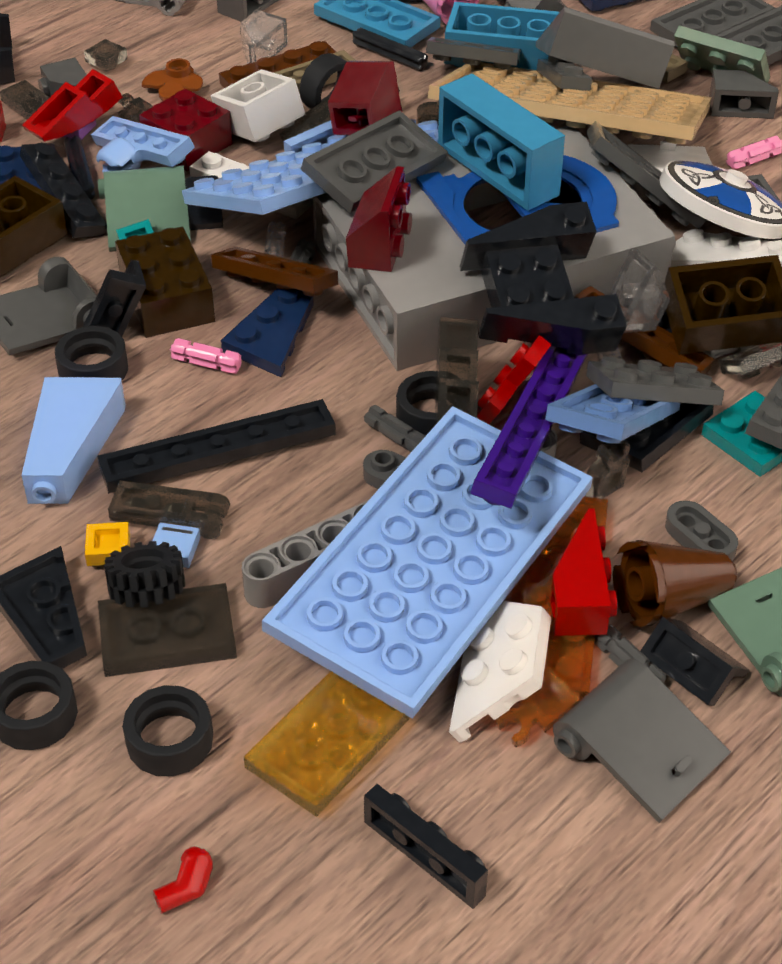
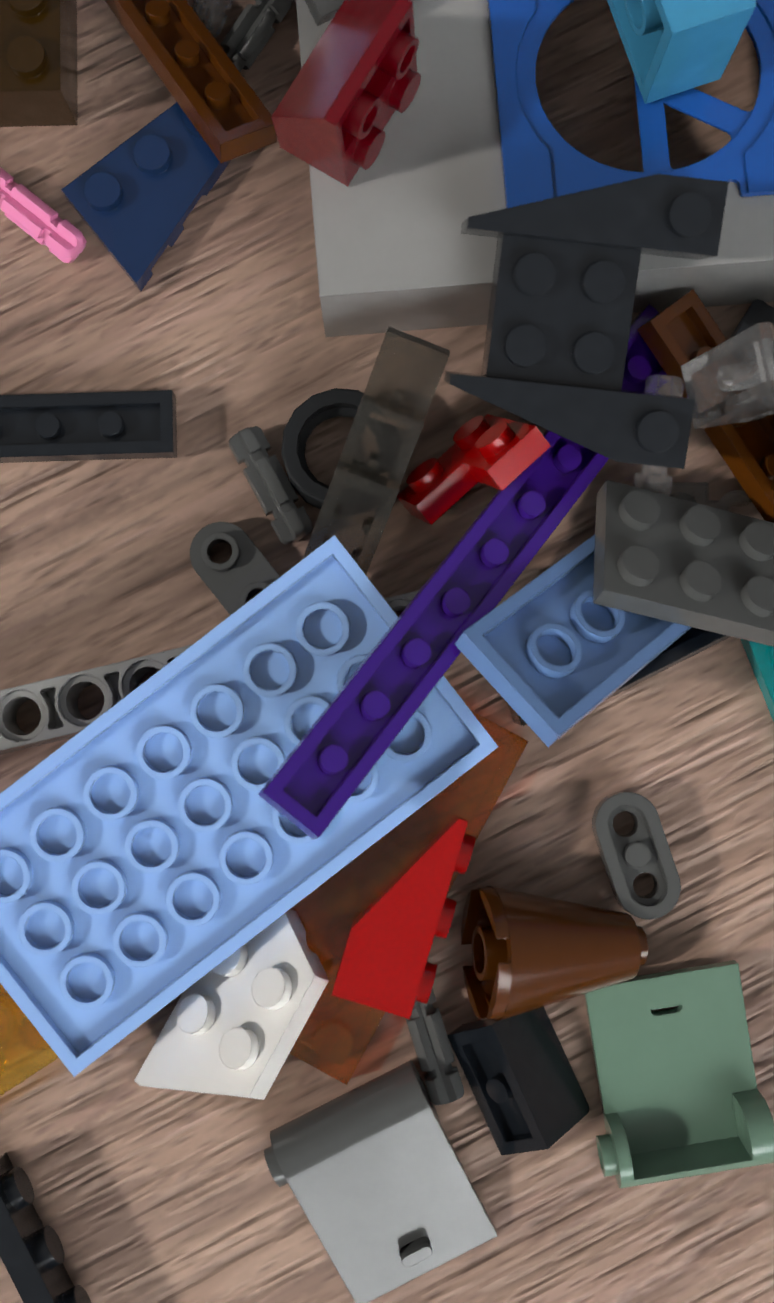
camera: 20 degrees right, 40 degrees up
(540, 708) = (290, 1098): clear orange plate -> none

